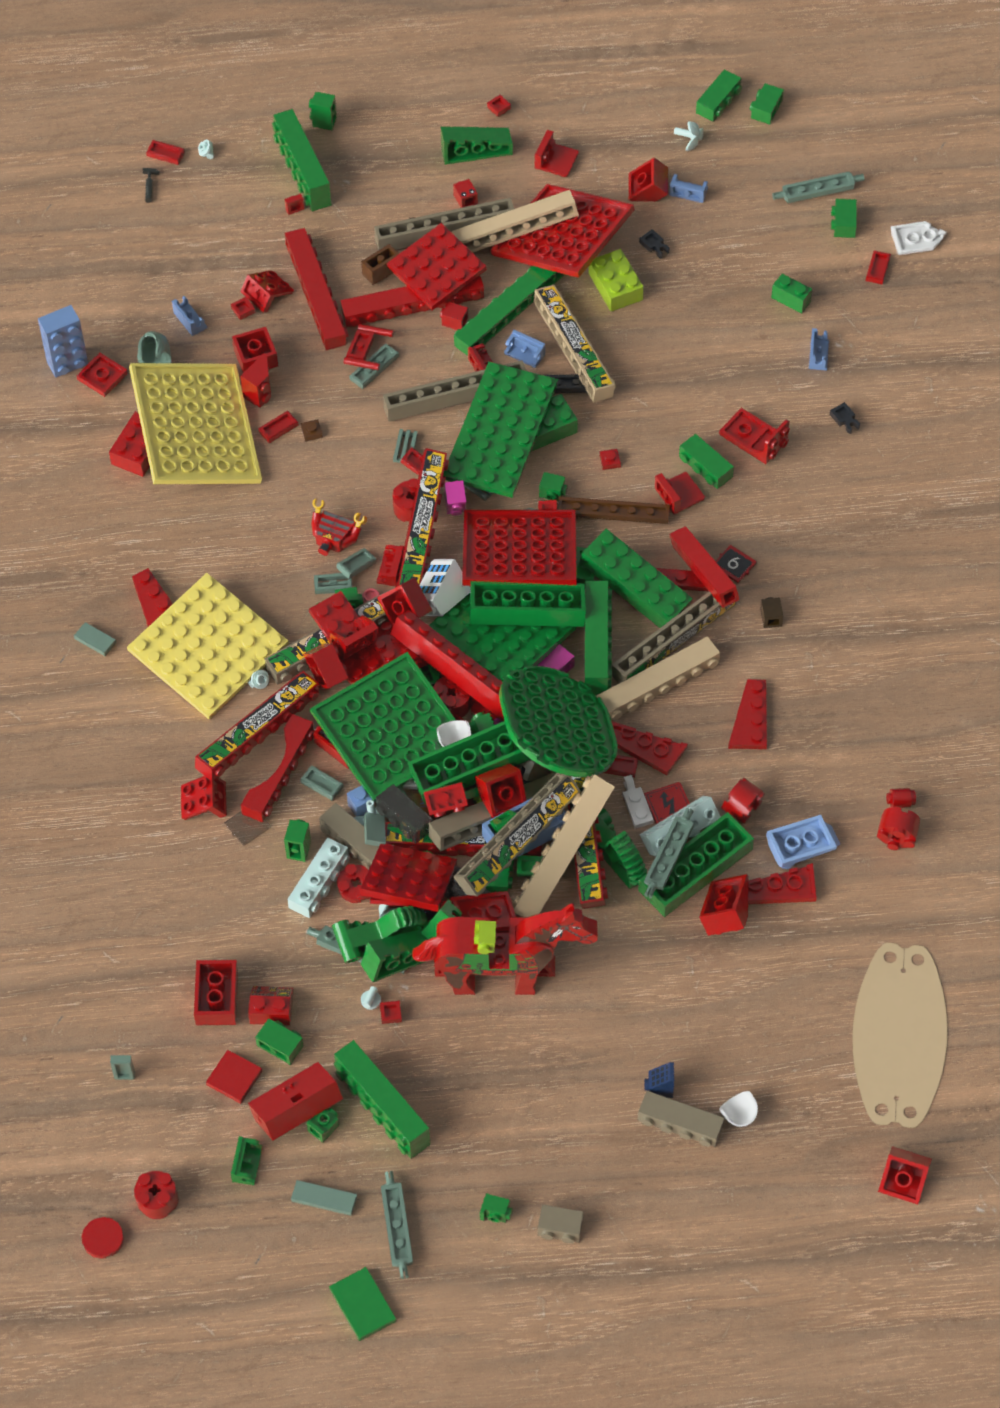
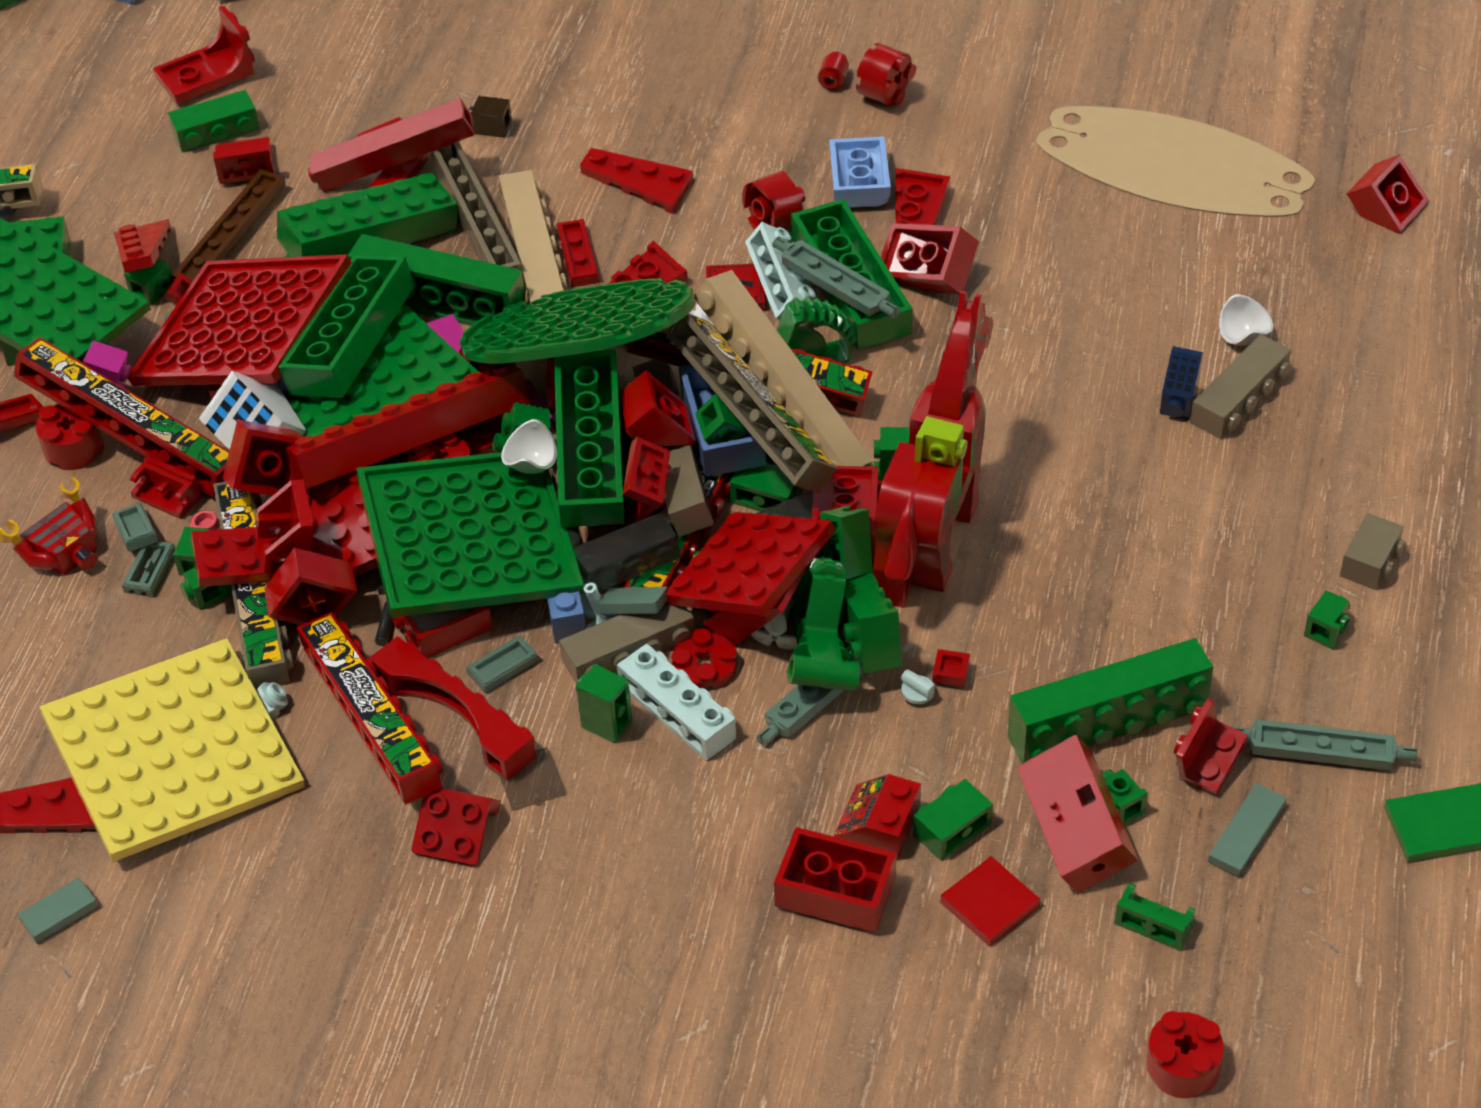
camera: 70 degrees left, 10 degrees down
(122, 1067) = (932, 1042): sand green tile -> none
(365, 1159) = (1208, 750): none -> red bracket
(572, 468) = (140, 244): none -> red wing
(610, 459) = (141, 214): red plate -> none
(668, 706) = (577, 253): none -> red tile

